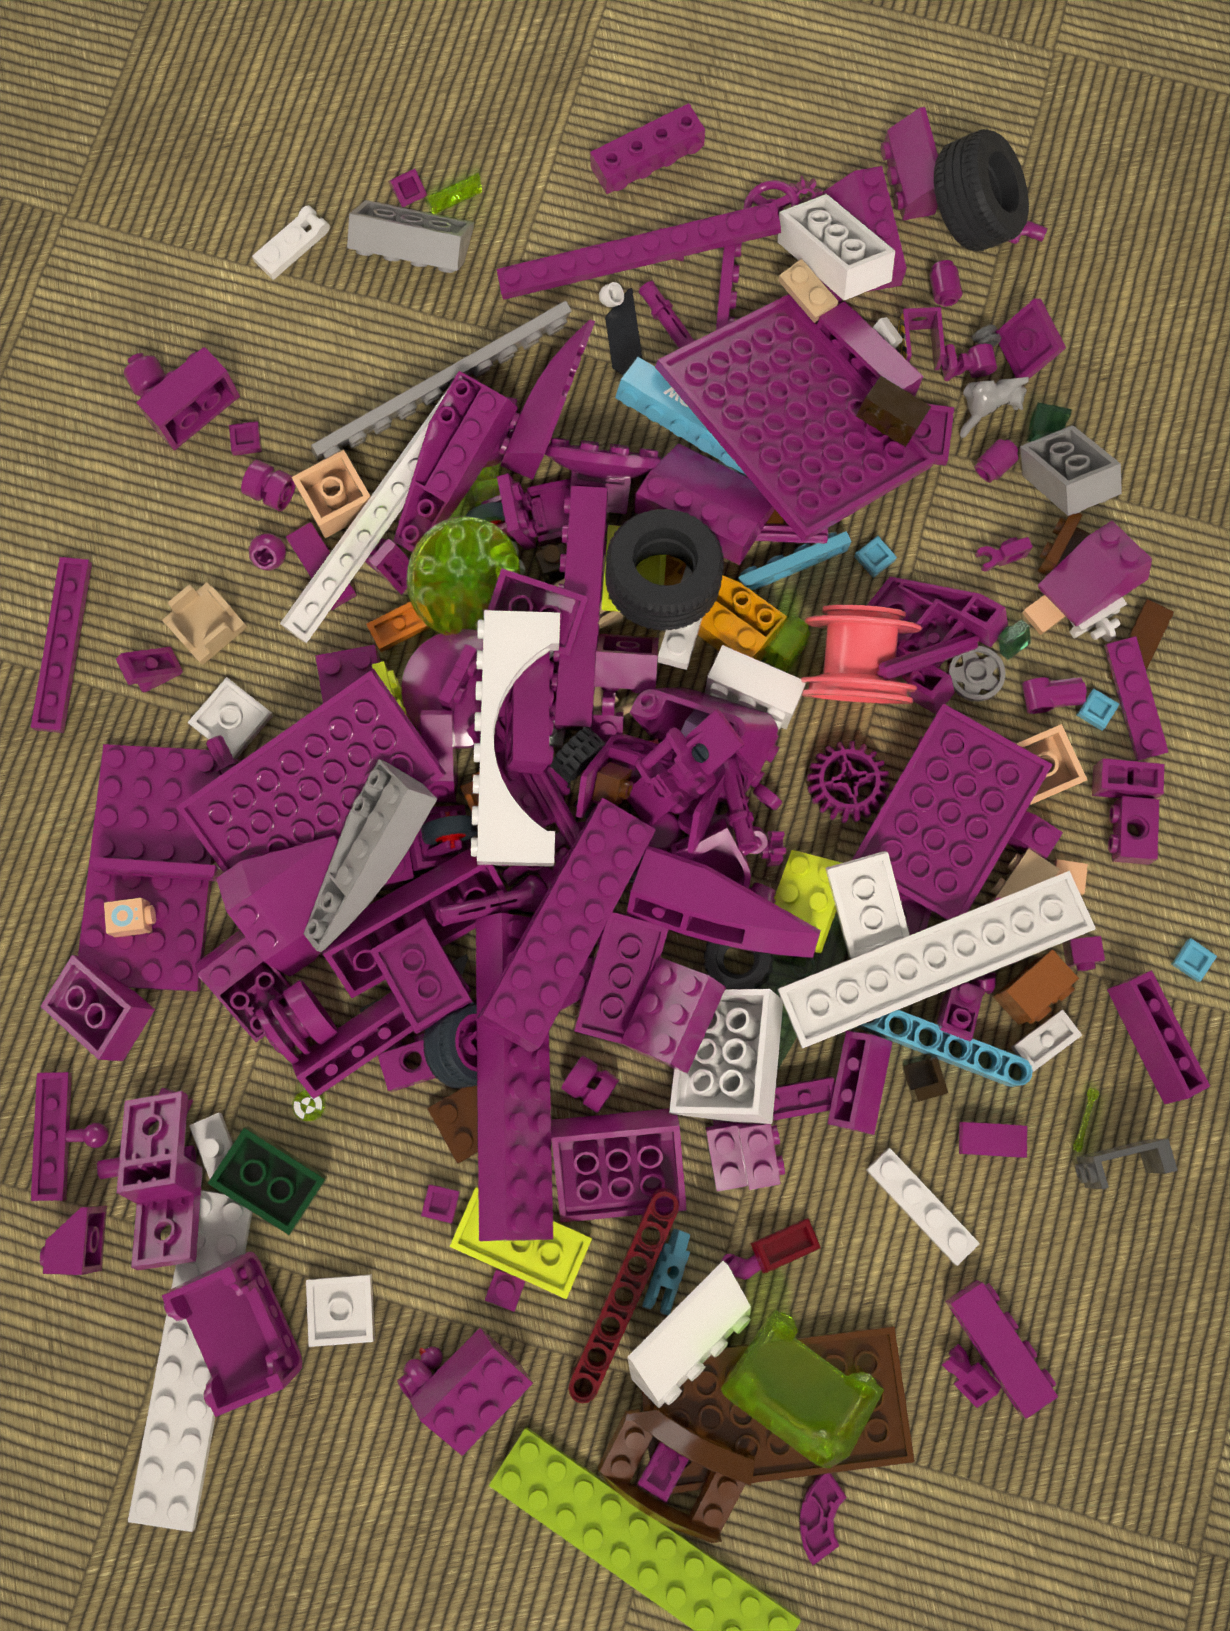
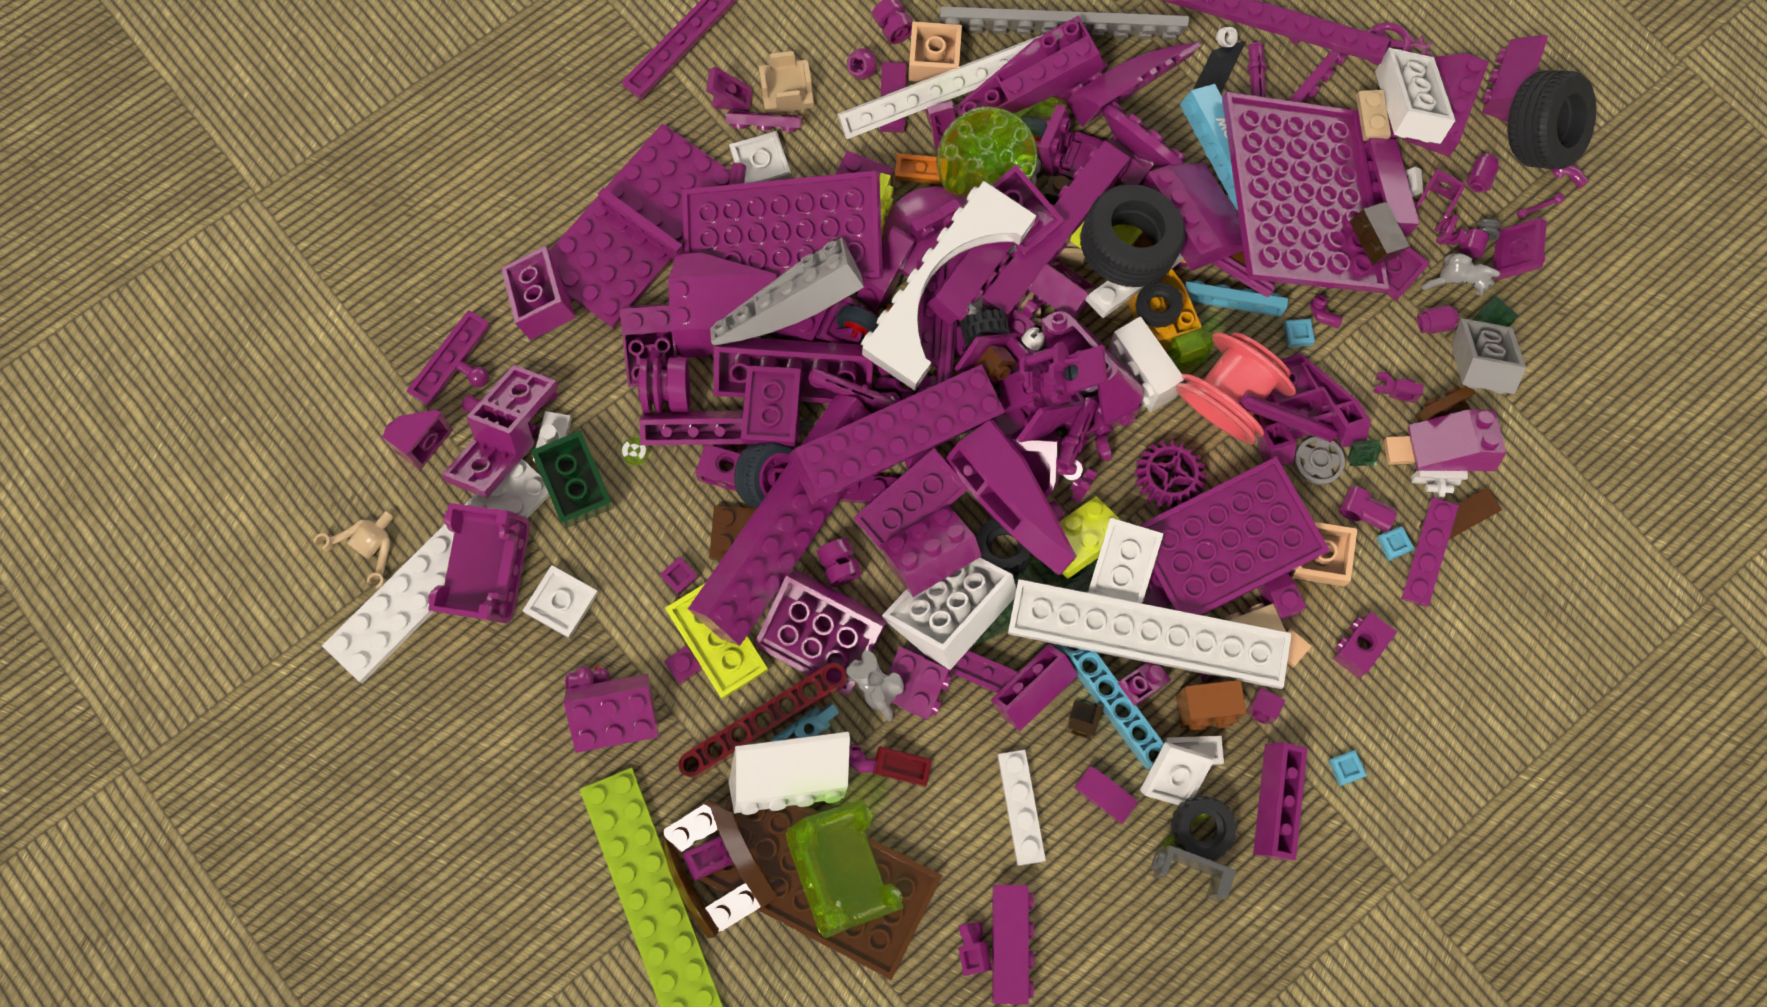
camera: 30 degrees right, 5 degrees down
(98, 1384) = (366, 540): none -> tan piece
(129, 917) = (600, 244): light nougat brick -> none
(207, 674) = (764, 121): none -> magenta plate
(631, 733) = (1033, 338): none -> white hinge
(711, 1187) = (877, 687): none -> light grey animal
(736, 637) = (1159, 319): none -> black tyre
(818, 1516) = (795, 972): magenta tile -> none
(885, 524) = (1321, 313): none -> magenta arm
(986, 981) = (1177, 678): magenta hinge -> none
(1028, 265) = (1557, 199): none -> magenta hinge
(1049, 1079) = (1176, 774): none -> white plate
(1127, 778) = (1383, 602): magenta brick -> none
(1128, 1111) = (1224, 822): none -> black tyre

